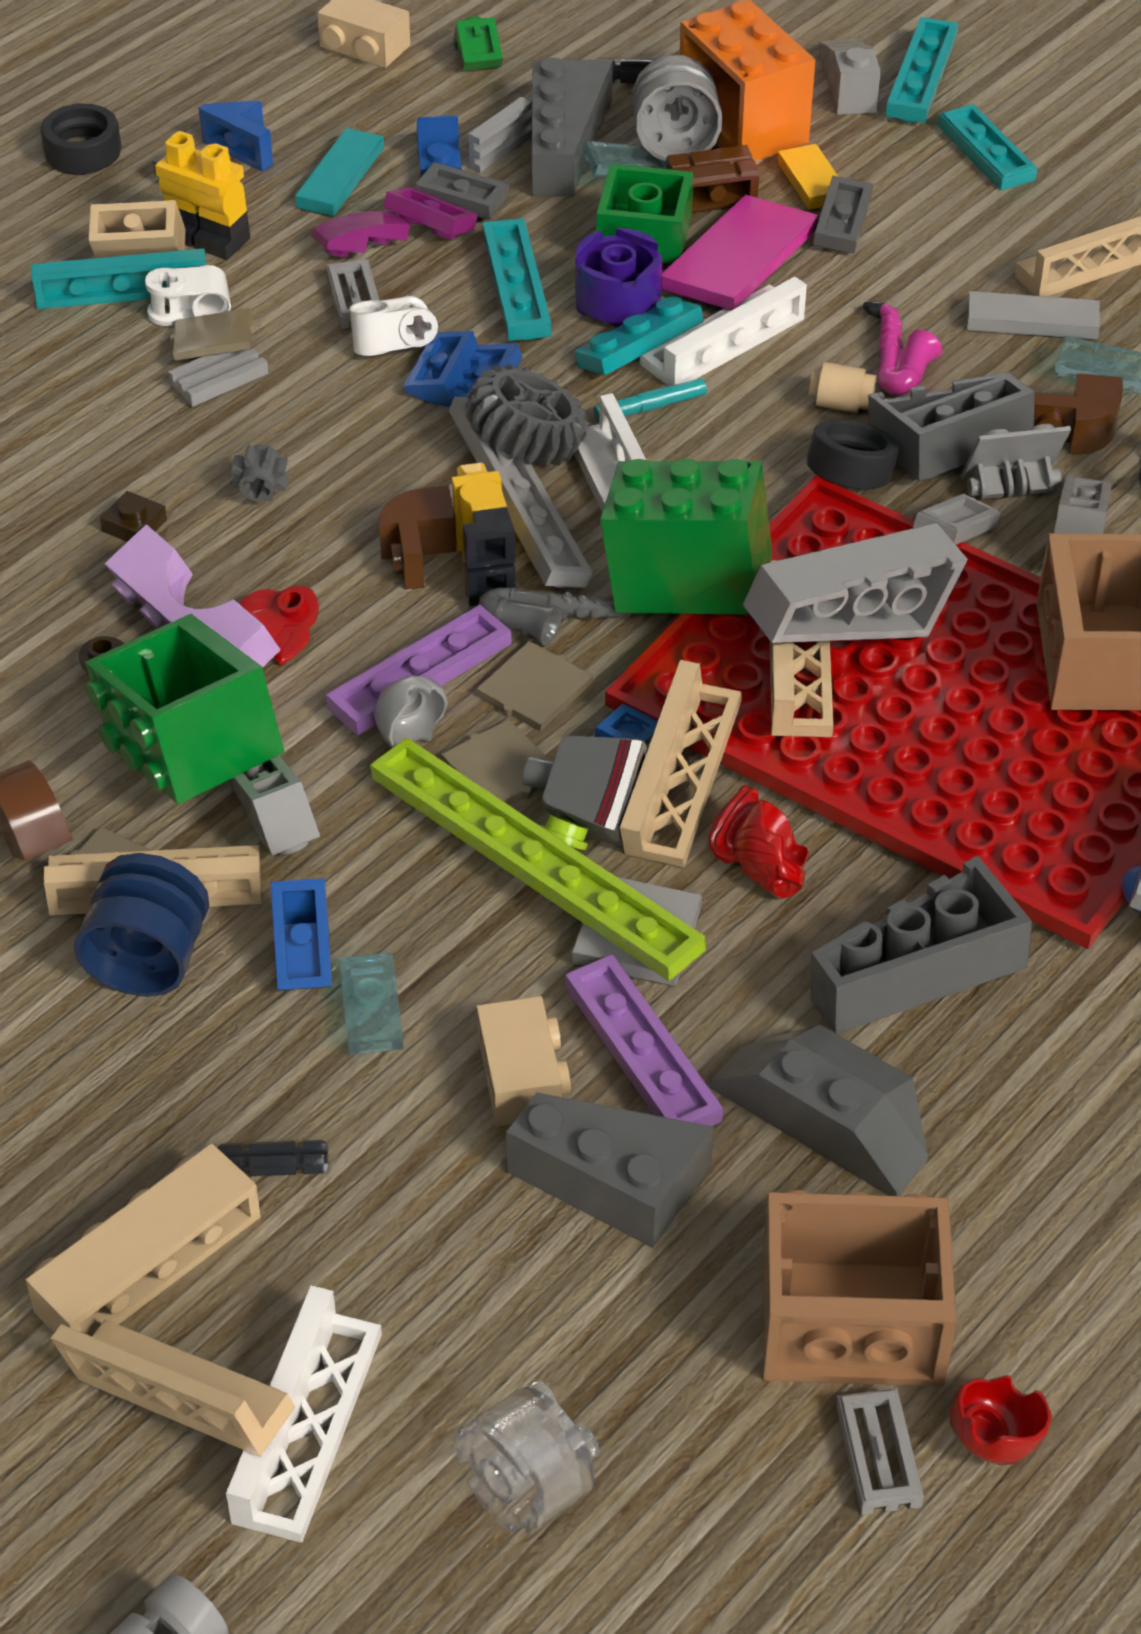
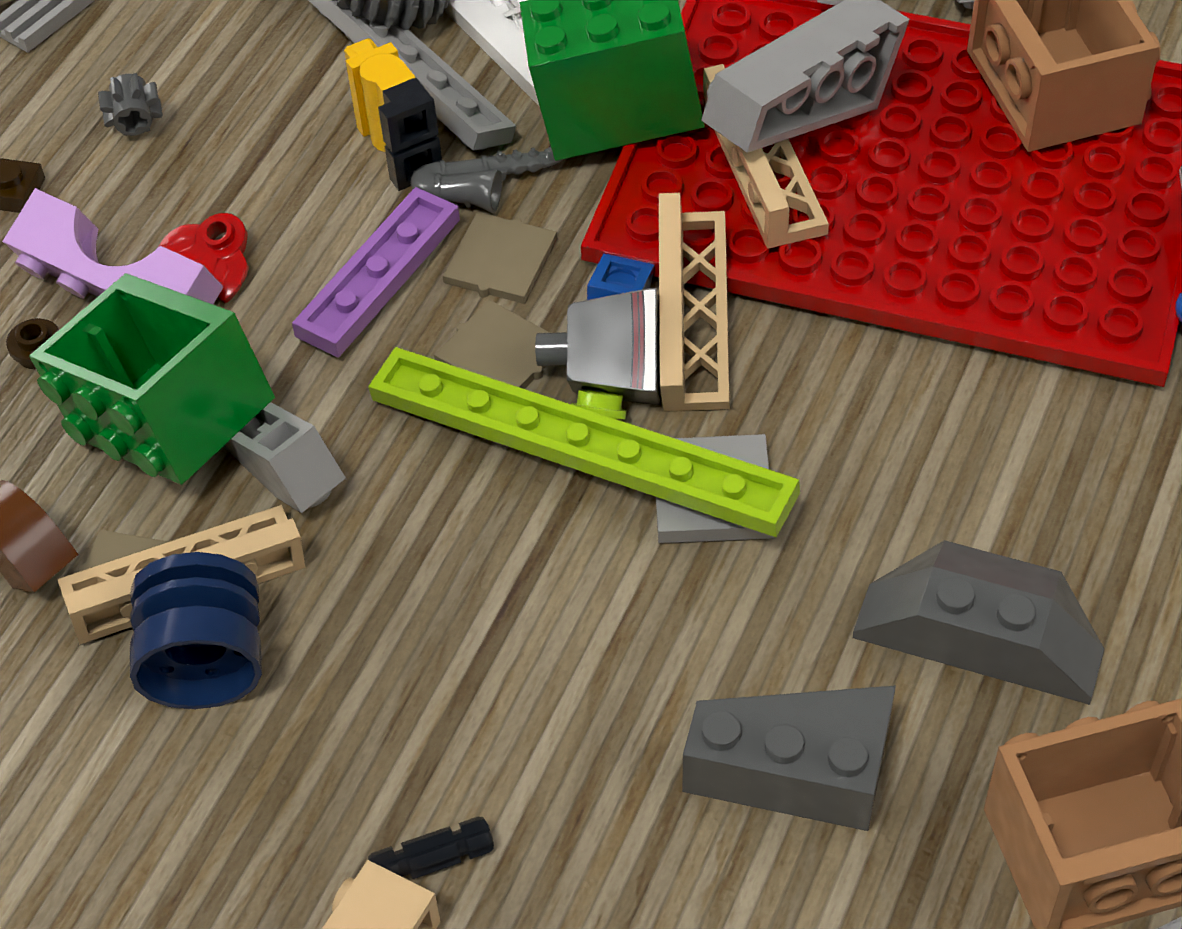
camera: 15 degrees left, 5 degrees up
(301, 934) = (370, 593): blue slope -> none
(371, 1003) = (468, 647): clear light blue plate -> none
(409, 709) = (387, 316): light grey hair -> none
(416, 526) = (316, 122): reddish brown brick -> none
(519, 1055) = (653, 665): tan brick -> none
(641, 1043) = (772, 613): medium lavender plate -> none
(761, 841) = (801, 362): red hair -> none
(922, 950) = (1016, 433): dark grey wedge -> none

